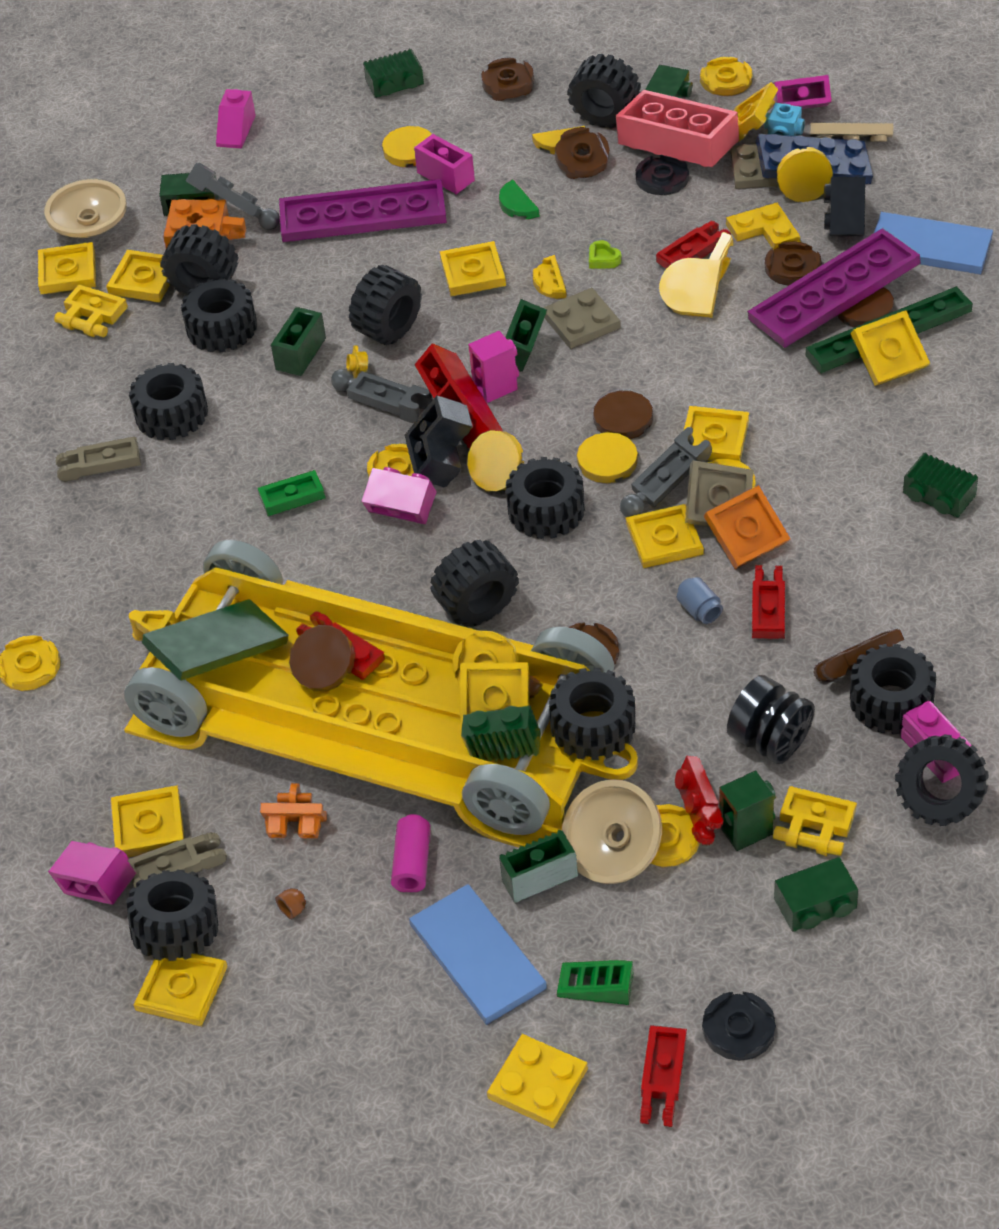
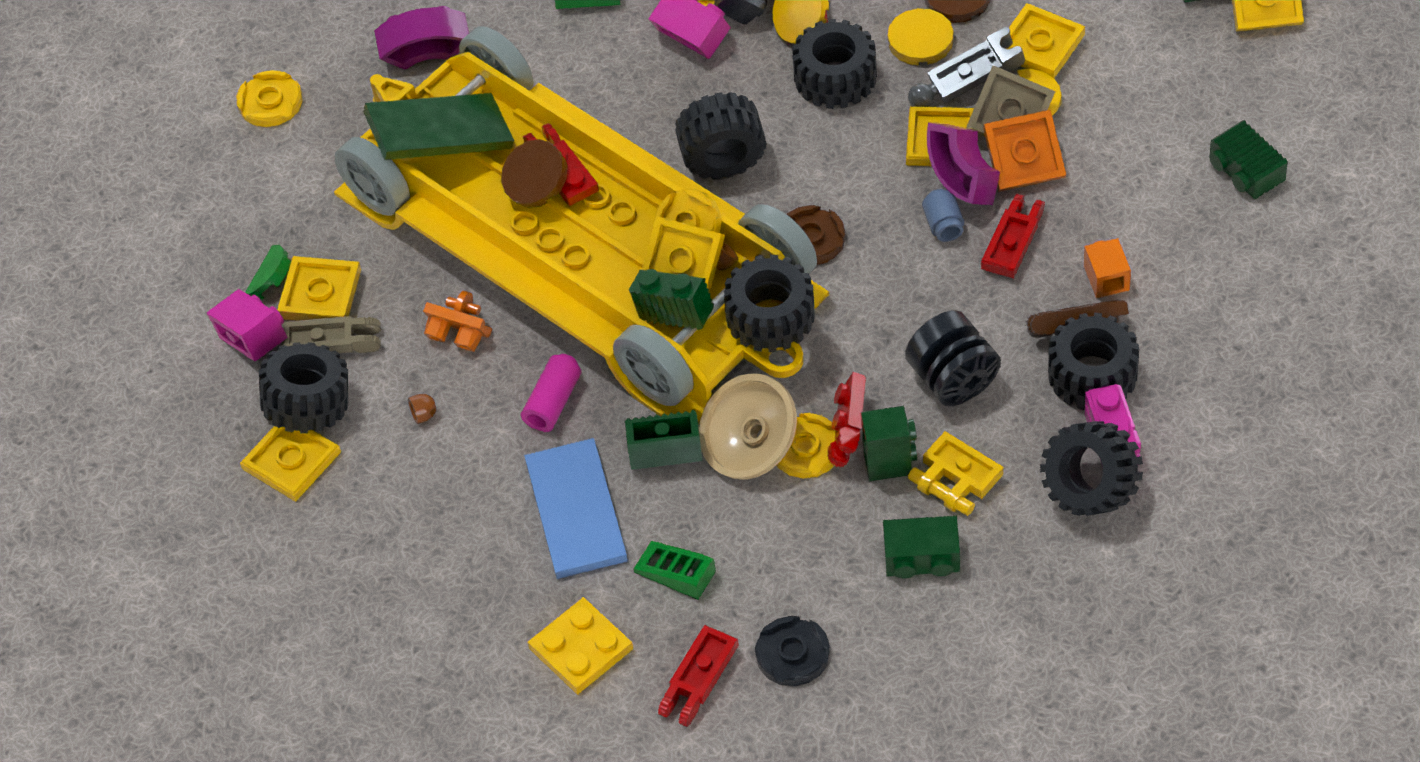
camera: 20 degrees right, 5 degrees up
(93, 816) = (270, 272): none -> green tile
(155, 569) = (421, 36): none -> magenta brick
(697, 552) = (960, 165): none -> magenta brick
(864, 606) = (1107, 267): none -> orange brick

